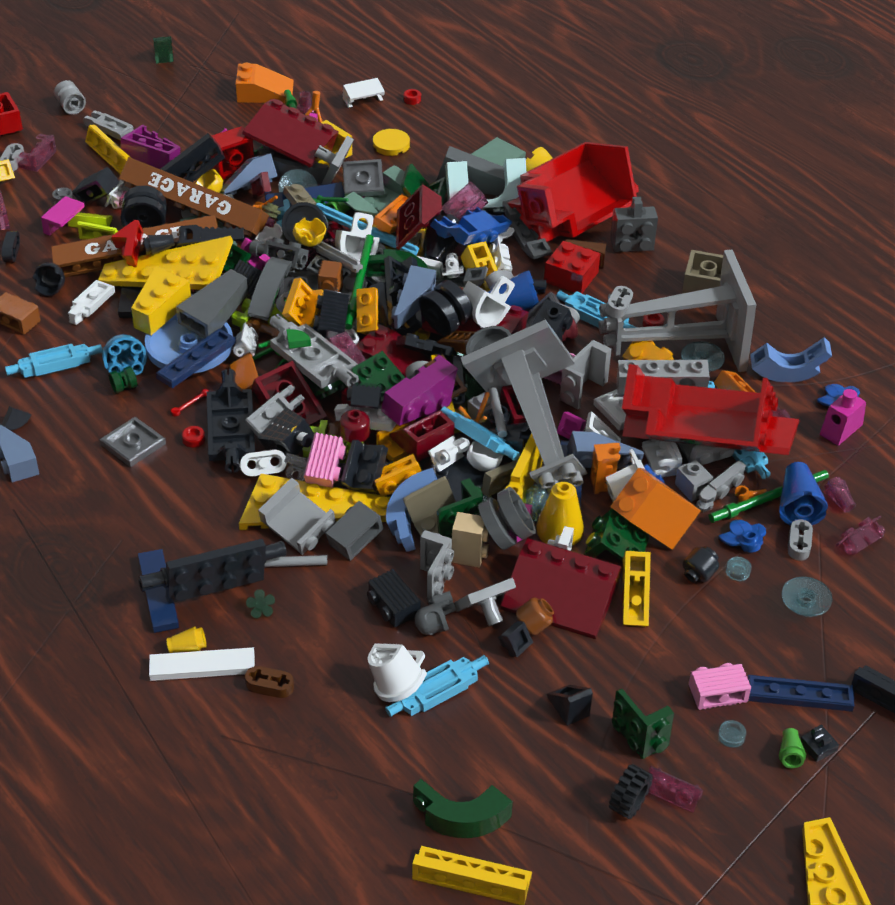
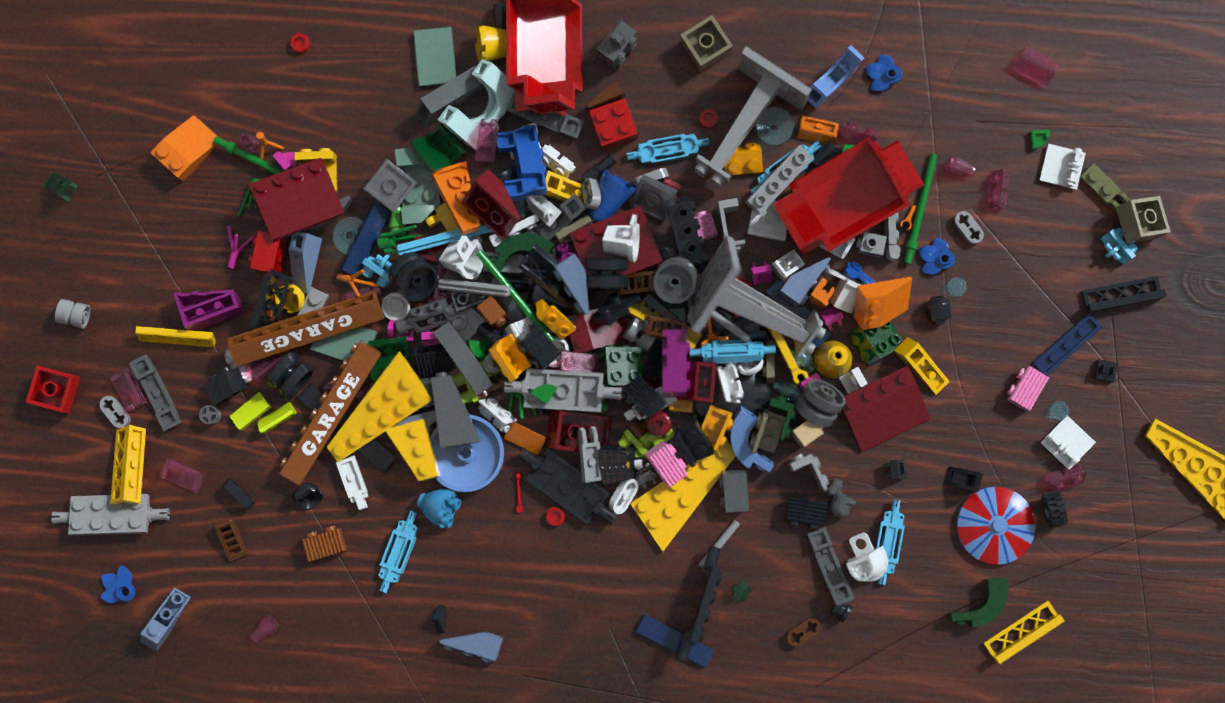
camera: 40 degrees left, 40 degrees up
(55, 164) = (156, 391): none -> dark grey slope
(60, 214) = (235, 431): dark pink panel -> none
(108, 124) = (136, 308): light grey hinge -> none
(123, 379) = (462, 523): dark green wheel -> none
(129, 240) = (335, 420): red slope -> none
(132, 441) = (526, 558): flat silver tile -> none
(157, 243) = (354, 404): black cone -> none
(187, 641) = (734, 656): yellow cone -> none
(195, 358) = (493, 466): dark blue tile -> none
(201, 664) = (756, 659): white tile -> none
(205, 234) = (379, 363): black piece -> none
(260, 185) = (331, 266): dark red tile -> none
(271, 209) = (367, 282): olive plate -> none
(296, 517) = (696, 516): light grey panel -> none
(297, 193) = (374, 252): dark tan plate -> none
(309, 232) = (433, 287): yellow hair -> none
(324, 692) = (841, 611): none -> black wheel
(334, 159) = (356, 191): light grey tile -> none
(355, 660) = (830, 566): none -> dark grey slope
(362, 90) = (267, 81): white hinge -> none
(391, 142) = (346, 112): yellow tile -> none
(486, 598) = (856, 462): light grey tile -> none
(536, 615) = (893, 445): dark orange head -> none
(556, 766) = (995, 525): none -> dish
(597, 495) = (831, 316): none -> dark pink tile
(617, 300) = (717, 159): light grey beam -> none
(643, 733) = (1032, 460): dark green bracket -> none
(710, 761) = (1068, 442): none -> white hinge
(791, 750) = (1097, 390): bright green cone -> none
(801, 496) = (944, 196): blue cone -> none
(807, 596) = (1022, 269): clear light blue dish -> none
(843, 417) = (908, 98): dark pink torso -> none

